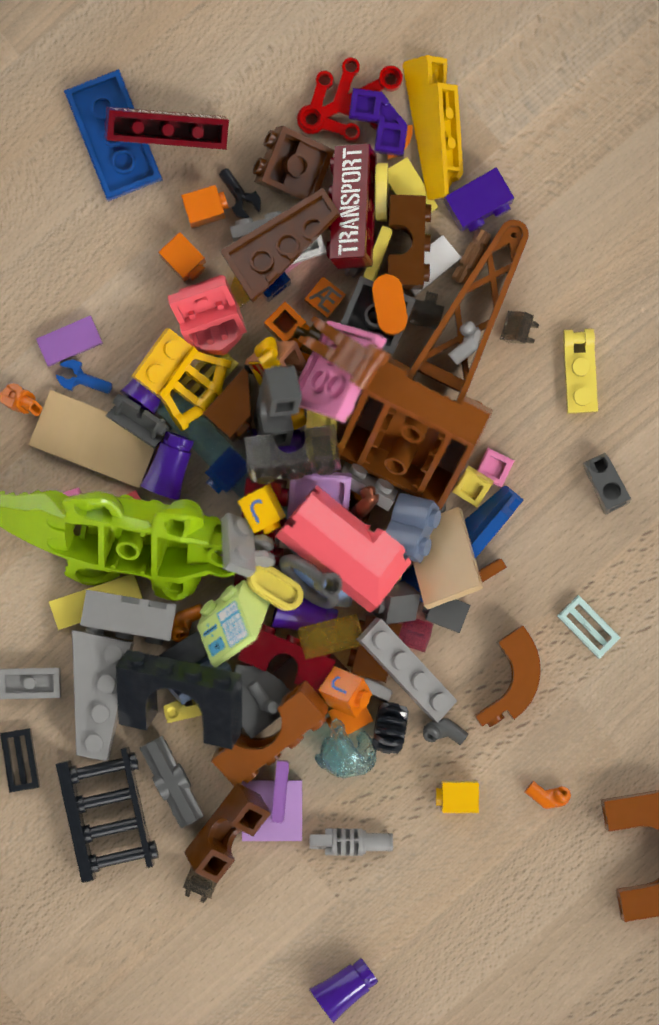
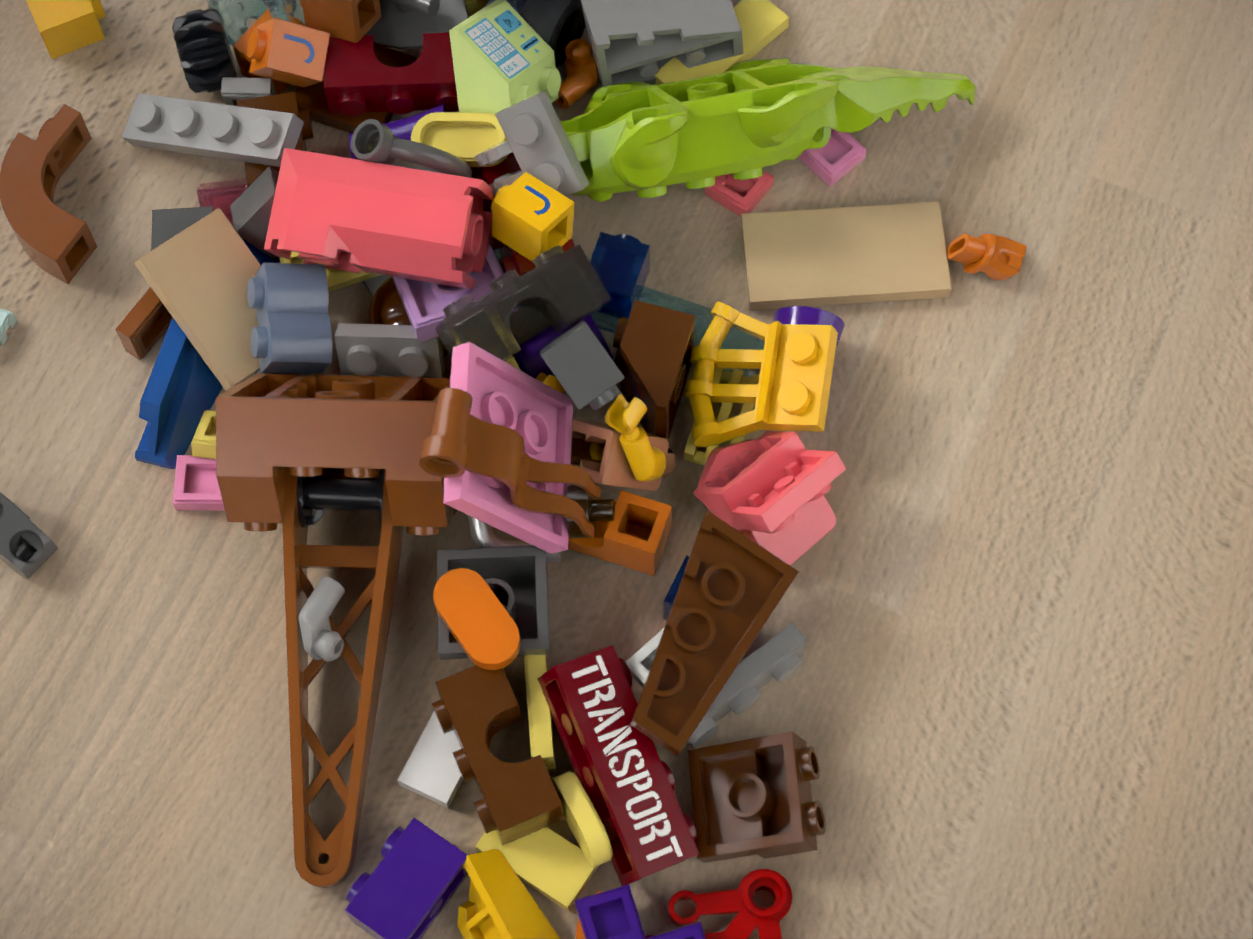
camera: 155 degrees right, 20 degrees down
(69, 341) = (963, 373): medium lavender tile -> none
(82, 378) = (916, 329): blue bar -> none
(119, 165) = (1078, 717): blue tile -> none
(138, 421) = (773, 288): dark grey hinge -> none
(166, 128) = (998, 746): dark red brick -> none
(169, 466) = (710, 247): dark purple plant -> none
(183, 258) = (855, 567): orange brick -> none
(205, 206) = (866, 663): orange brick -> none
(239, 194) = (816, 714): black bar -> none
(325, 297) = (596, 617): orange tile -> none
(330, 636) = (333, 121): clear yellow plate -> none
(368, 501) = (378, 313): copper arm -> none
(427, 312) = (414, 664): clear smoke tile -> none
(444, 728) = (122, 99): dark grey arm -> none
(471, 256) = (381, 791): medium nougat axle -> none
(518, 327) = (250, 706): clear smoke tile -> none
(580, 372) = (117, 689): light yellow plate -> none

